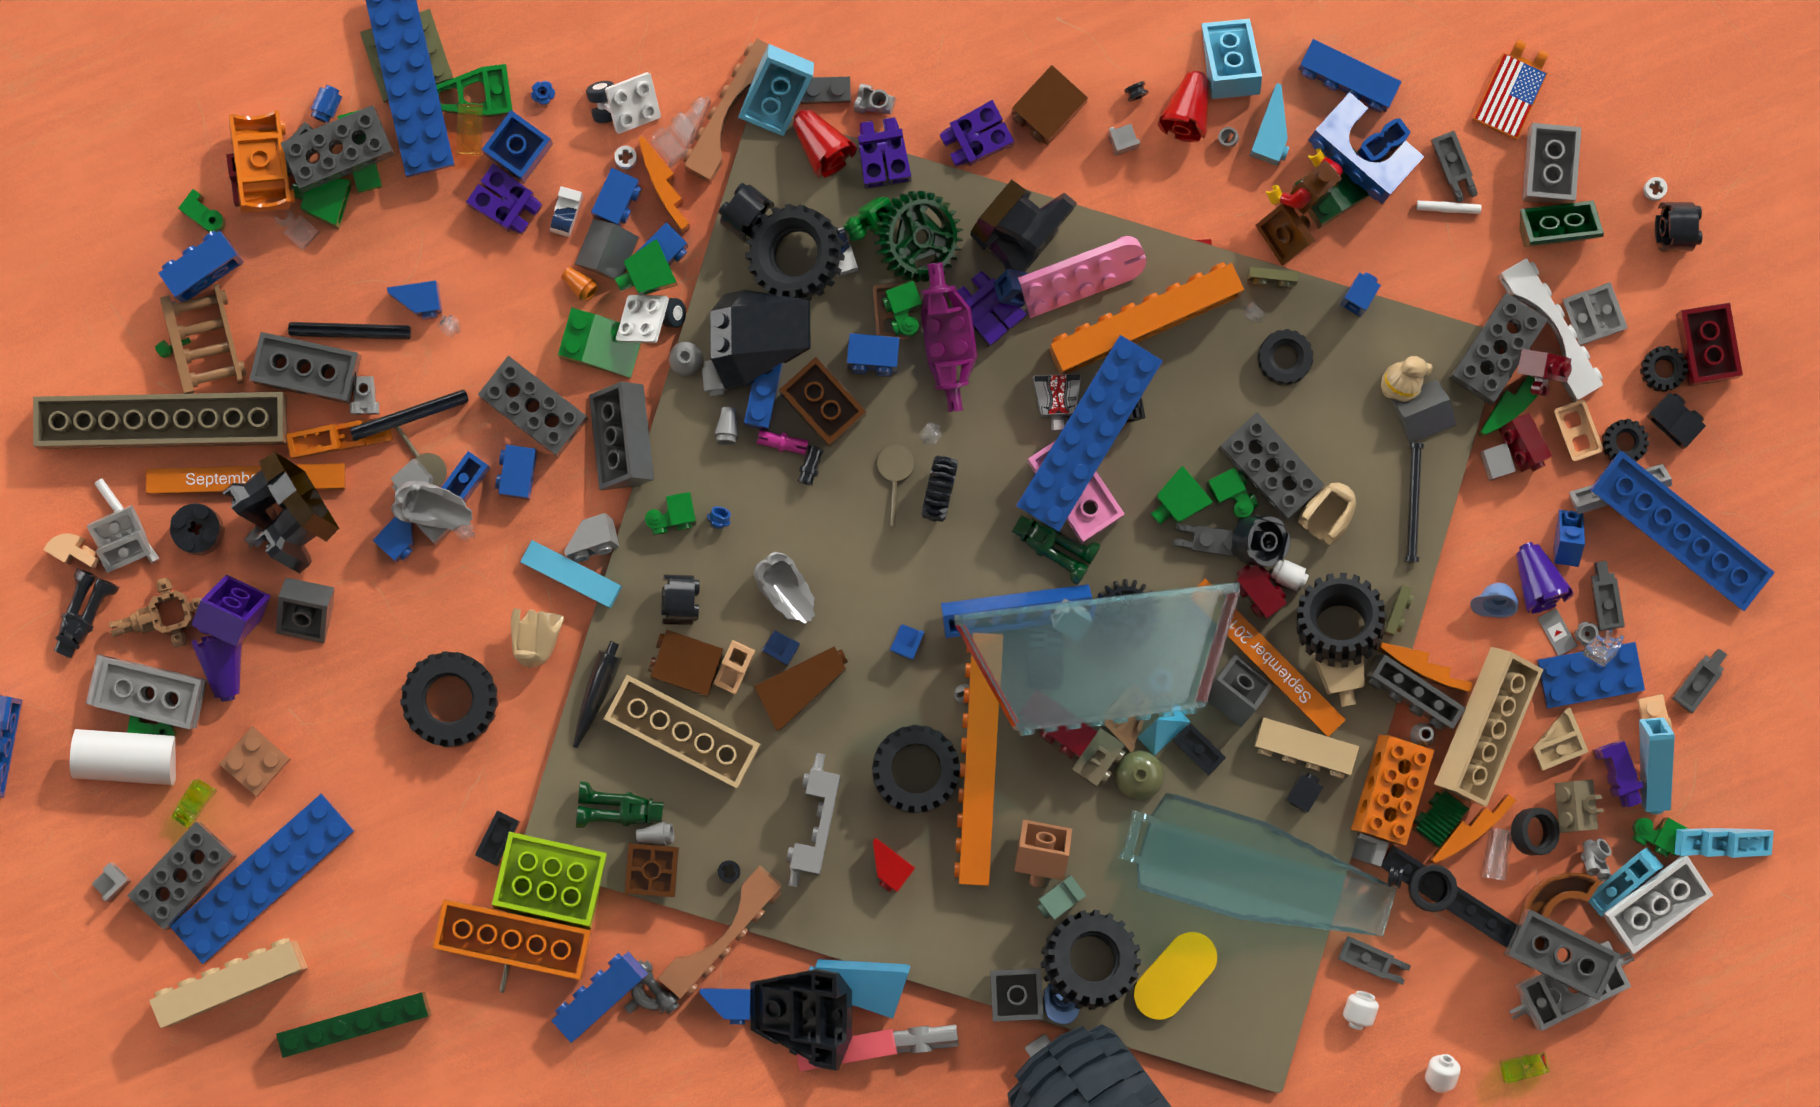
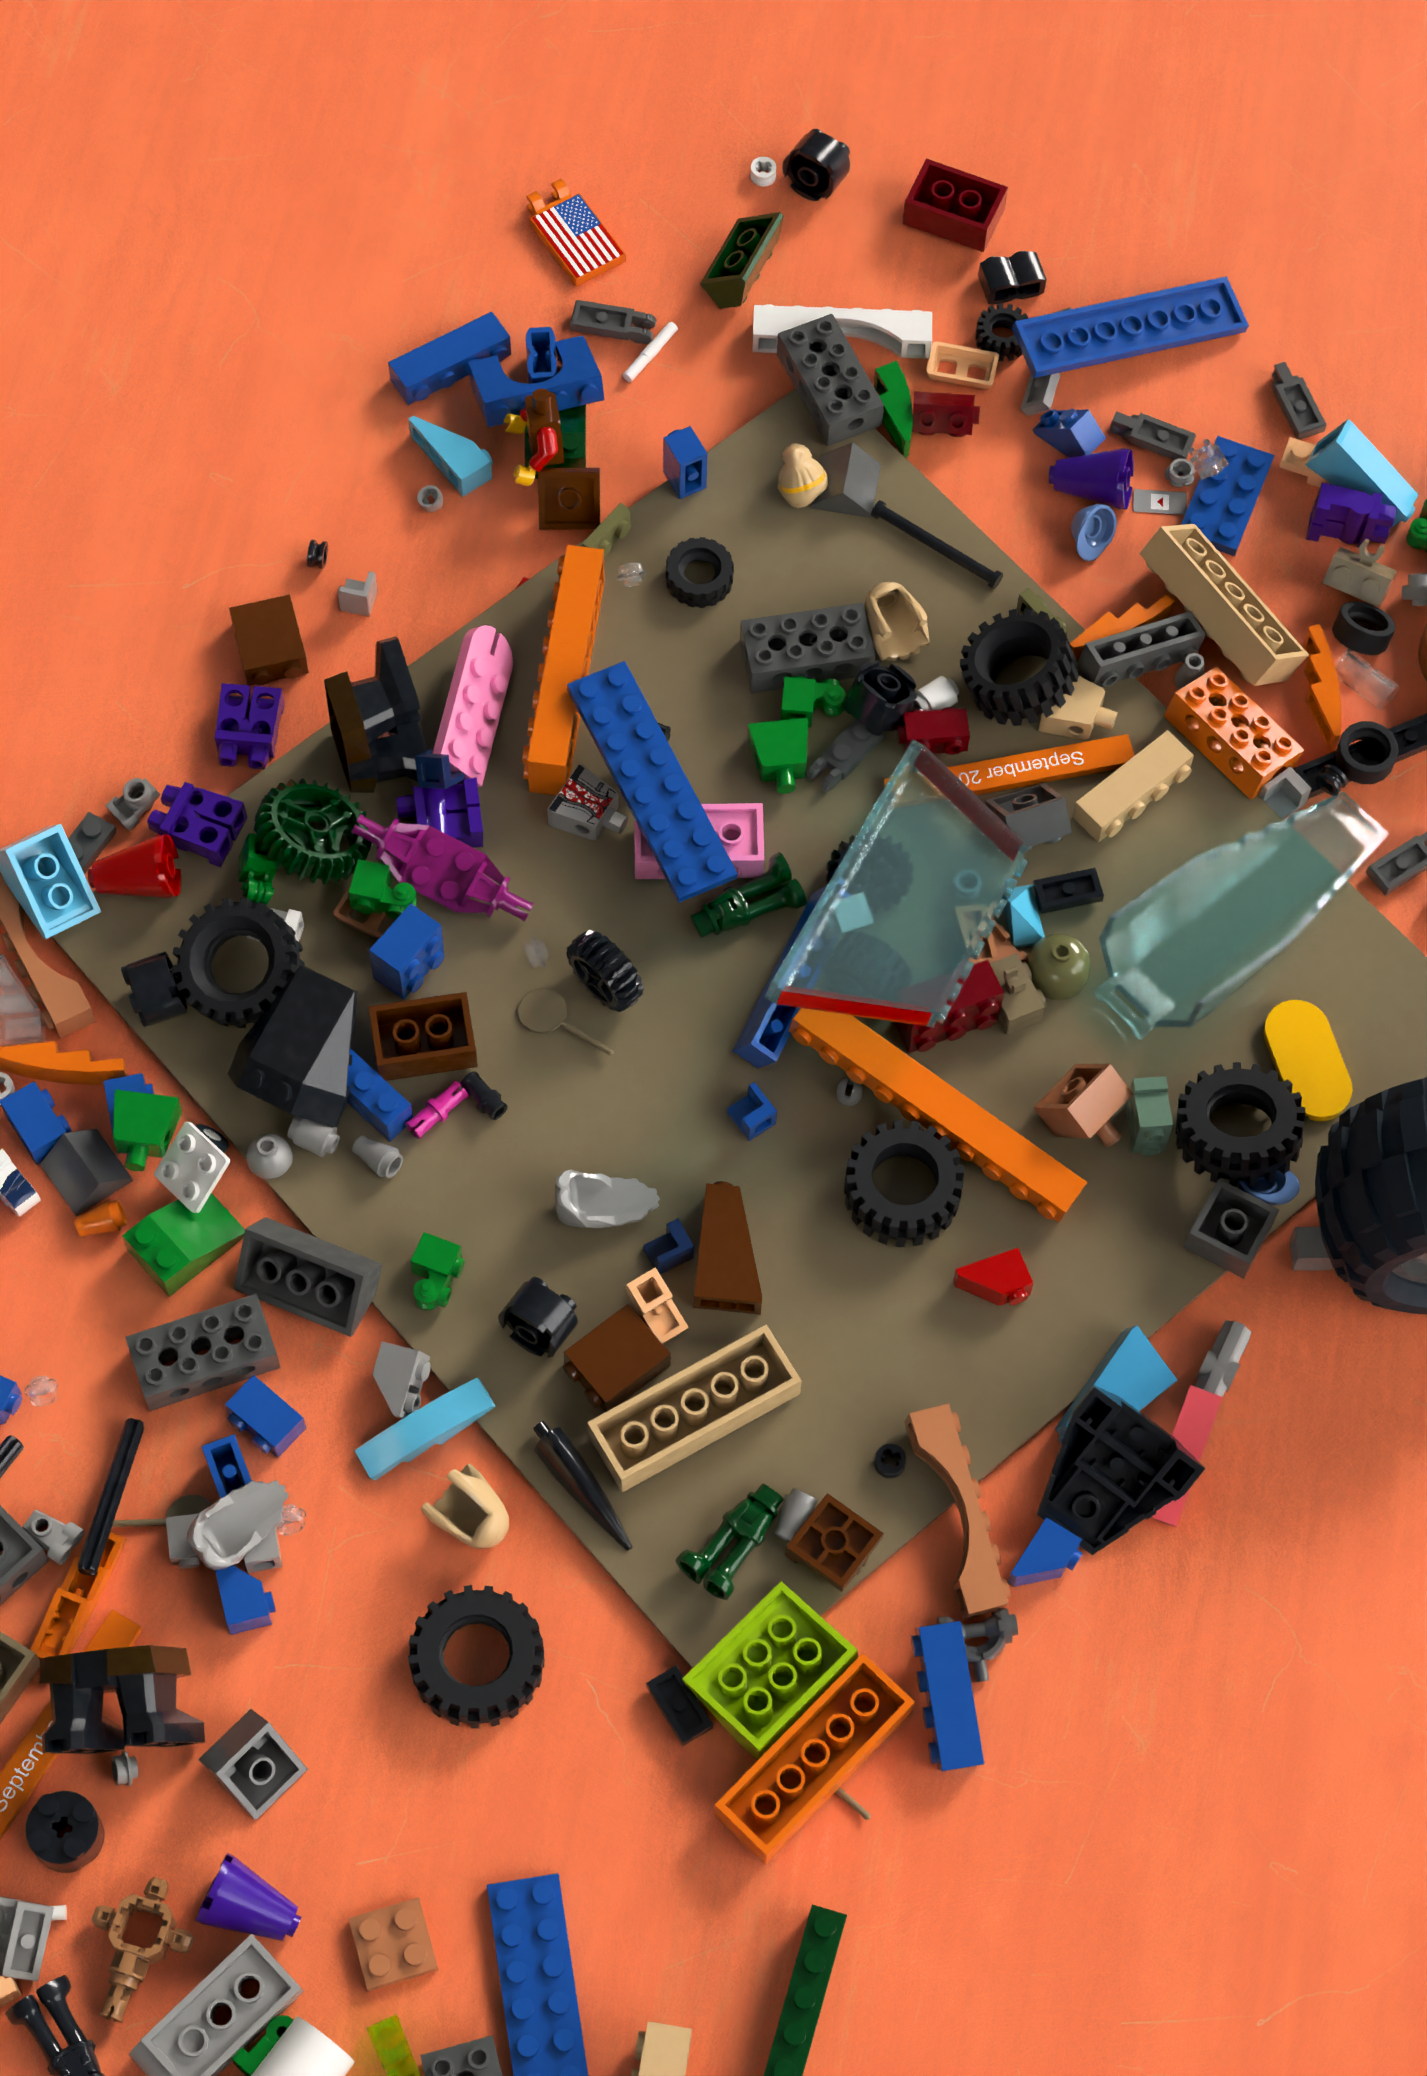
camera: 55 degrees left, 20 degrees down
(230, 610) = (193, 1842): dark purple brick -> none
(719, 517) = (474, 1225): blue plate -> none
(820, 785) = (932, 1346): light grey brick -> none
(1187, 109) = (375, 516): red cone -> none
(1231, 59) = (353, 450): medium azure slope -> none
(1304, 792) = (1183, 816): black brick -> none
(1439, 818) = (1293, 708): dark green brick -> none
(1497, 461) = (945, 450): light grey panel -> none
(1544, 368) = (880, 344): dark red brick -> none
(1551, 163) = (673, 234): light grey brick -> none
(1560, 742) = (1279, 558): tan wing -> none
(1595, 313) = (852, 284): light grey slope -> none
(1674, 358) = (951, 273): black tyre -> none

